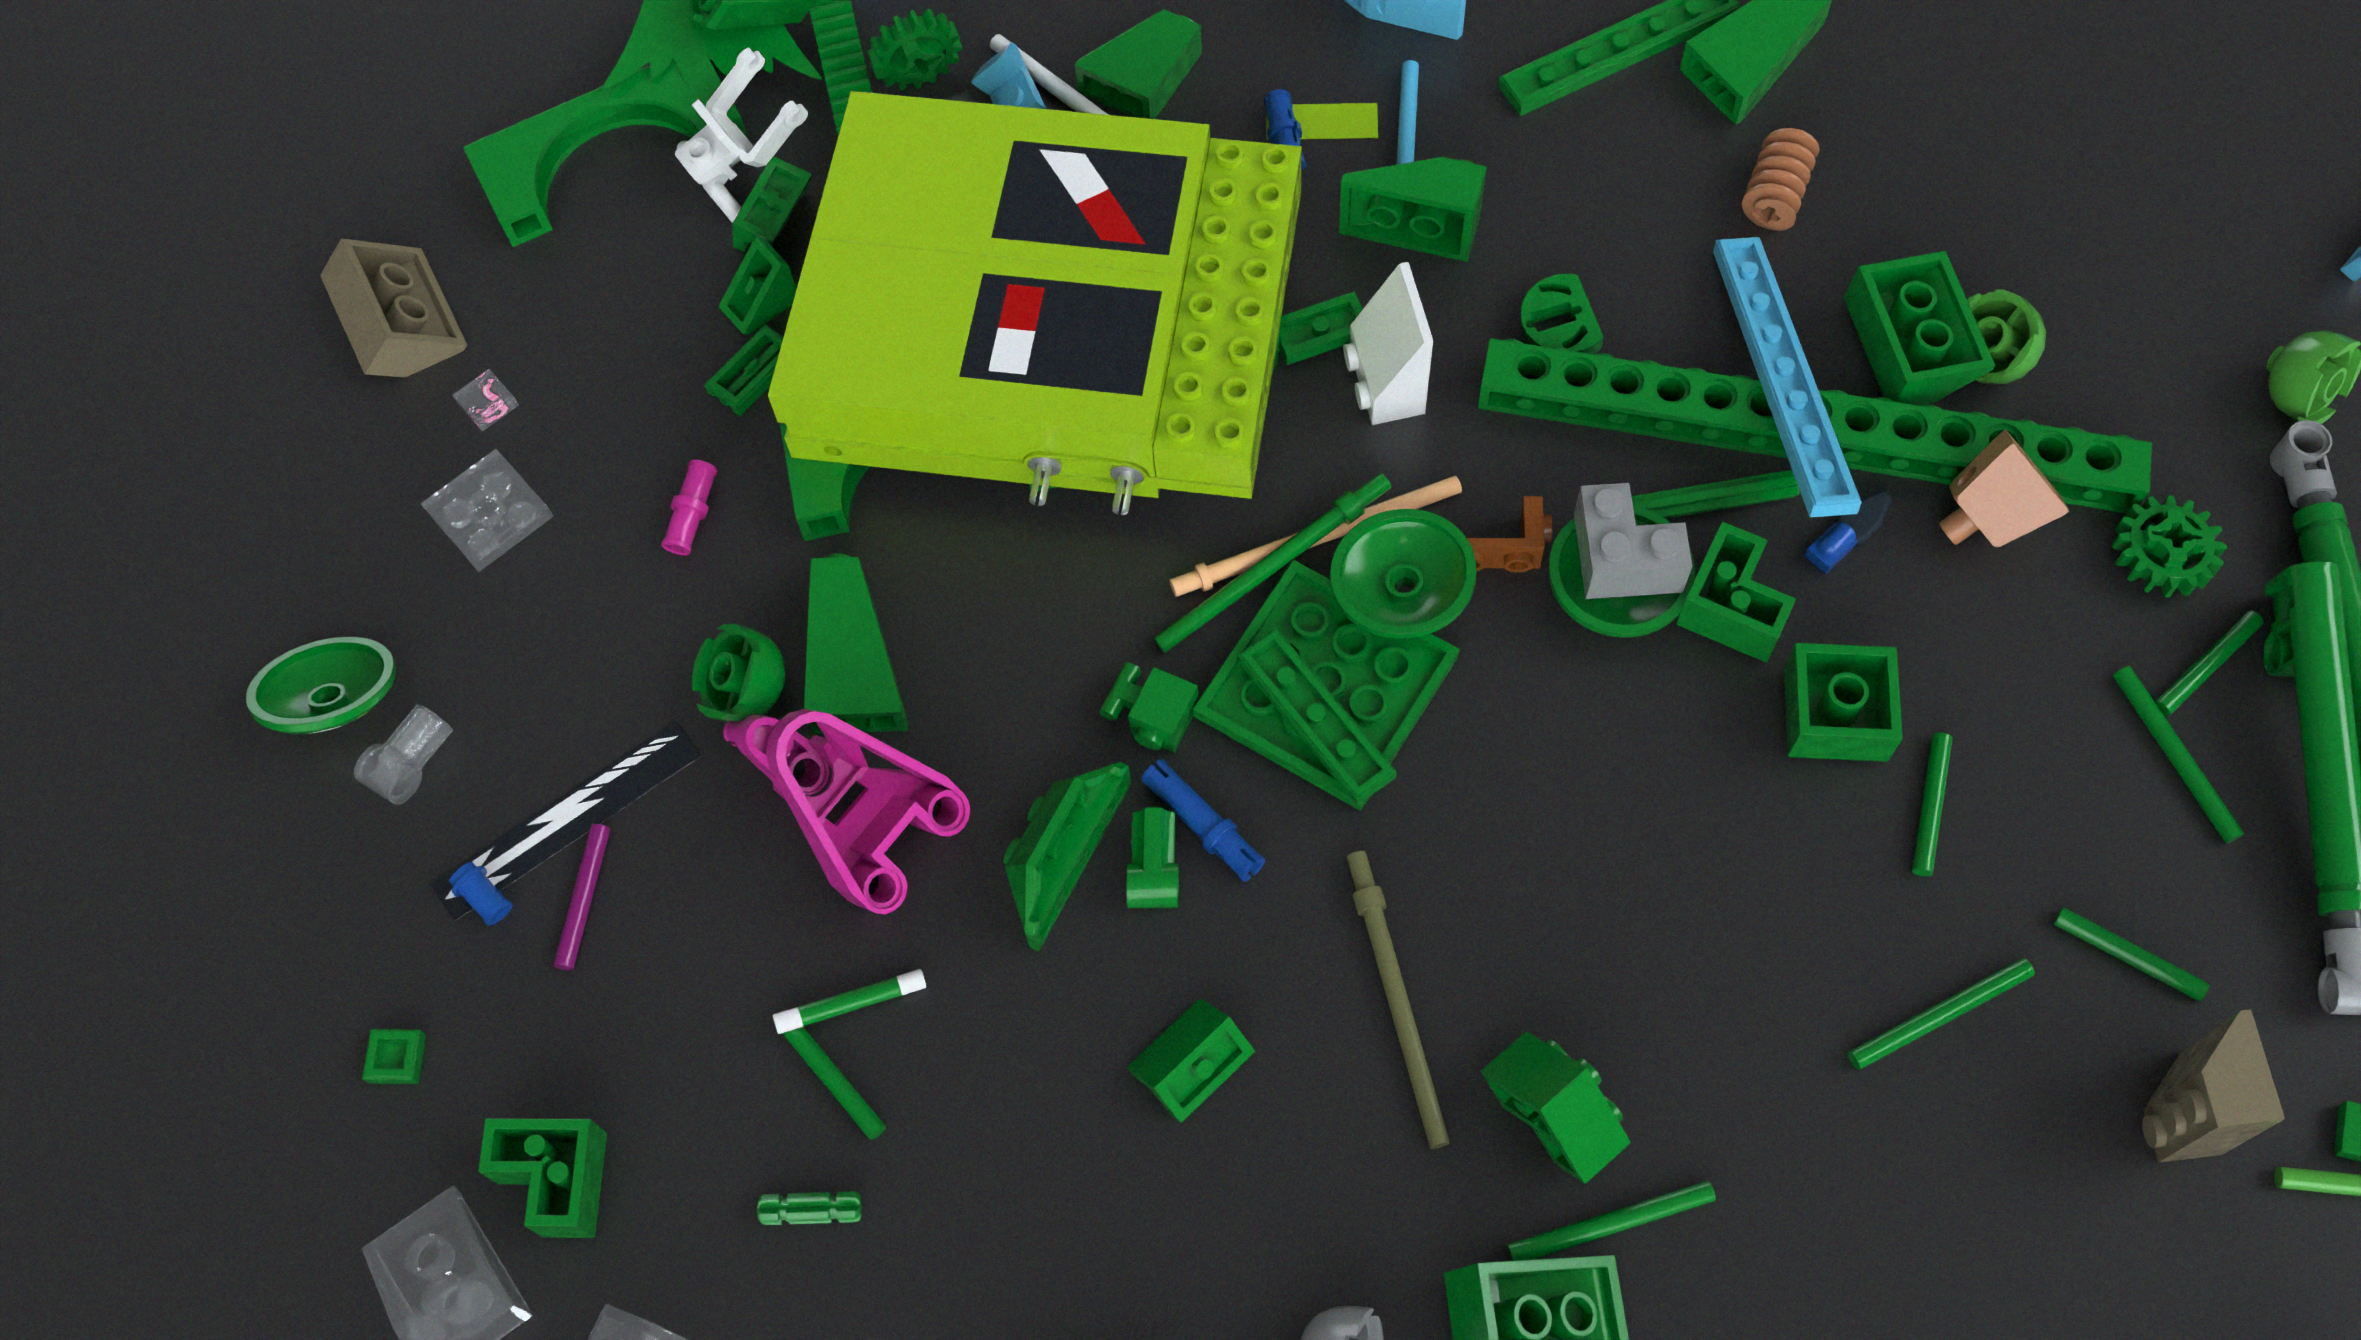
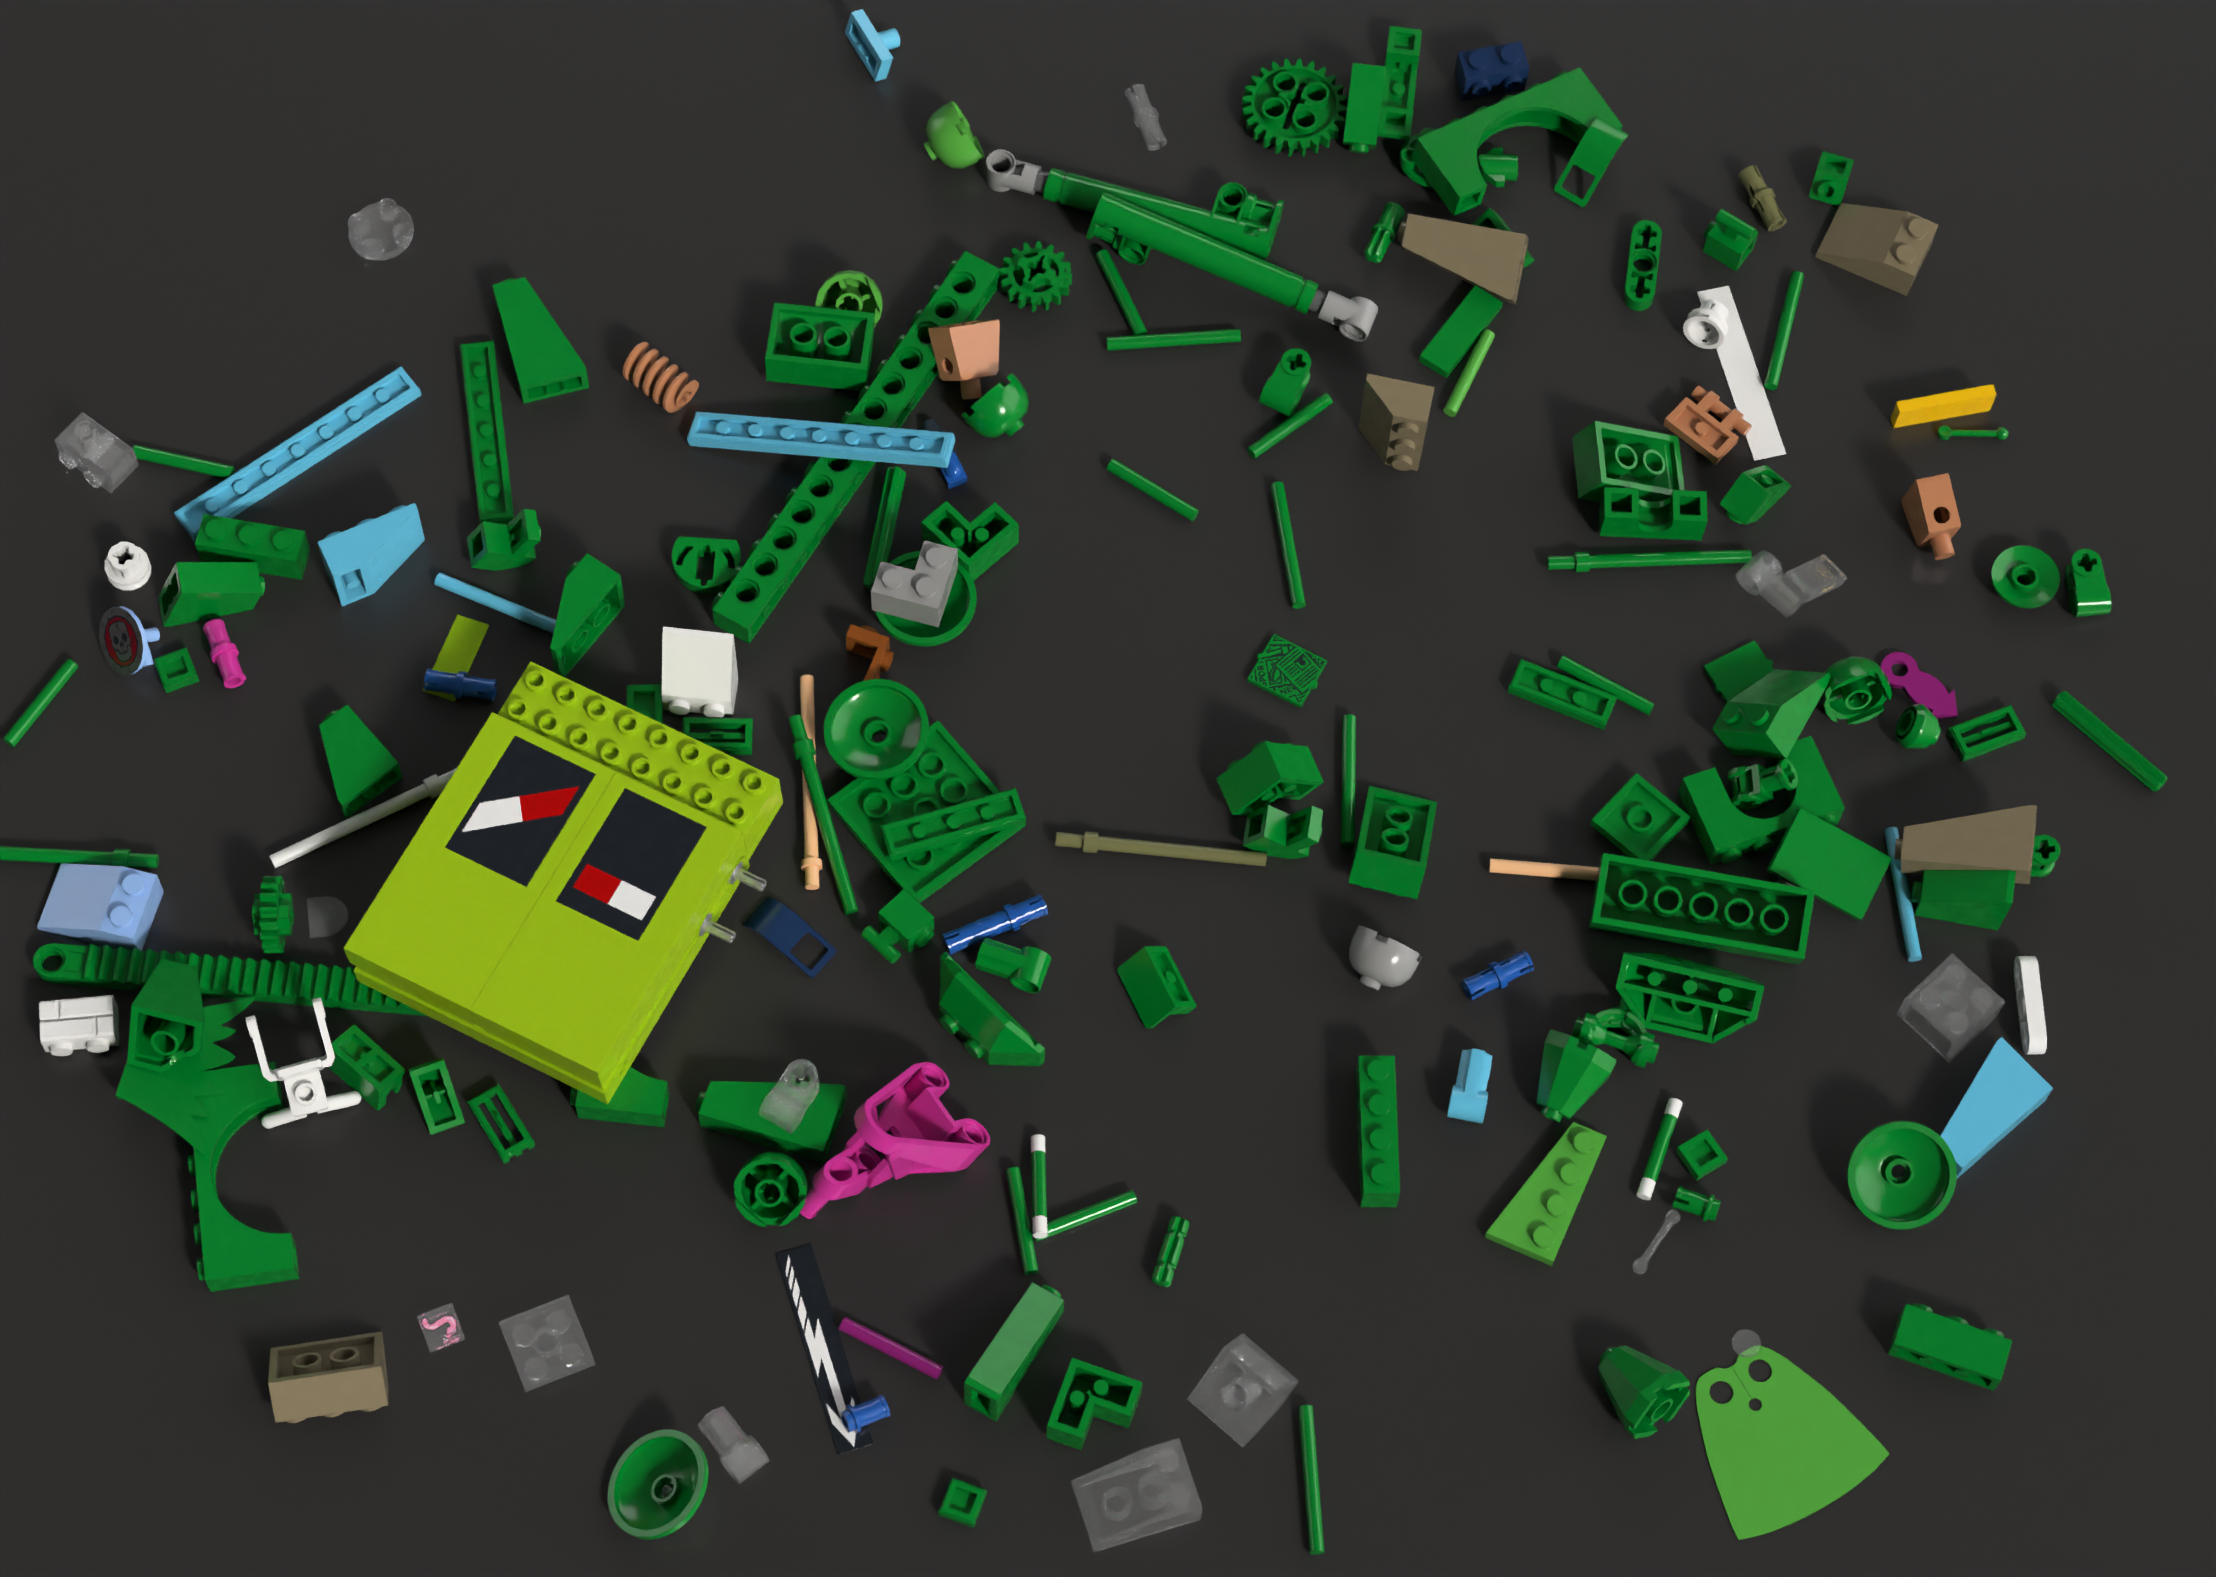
camera: 80 degrees left, 0 degrees up
(597, 1042) = (1013, 1351): none -> green slope
(689, 507) = (607, 1196): dark pink pin -> none
(802, 995) = (1021, 1221): none -> green bar
(855, 649) = (789, 1101): none -> clear piece
(1008, 80) = (326, 862): medium azure slope -> none
(1100, 576) = (784, 931): none -> dark blue piece
(1347, 446) = (718, 738): none -> green tile
(1478, 105) = (505, 546): none -> green brick
(1483, 1151) = (1283, 833): none -> green brick
(1745, 1079) = (1287, 671): none -> green piece
(1842, 702) = (1070, 508): green brick -> none
(1944, 564) = (999, 410): none -> green cylinder
(2187, 926) = (1286, 384): none -> green piece

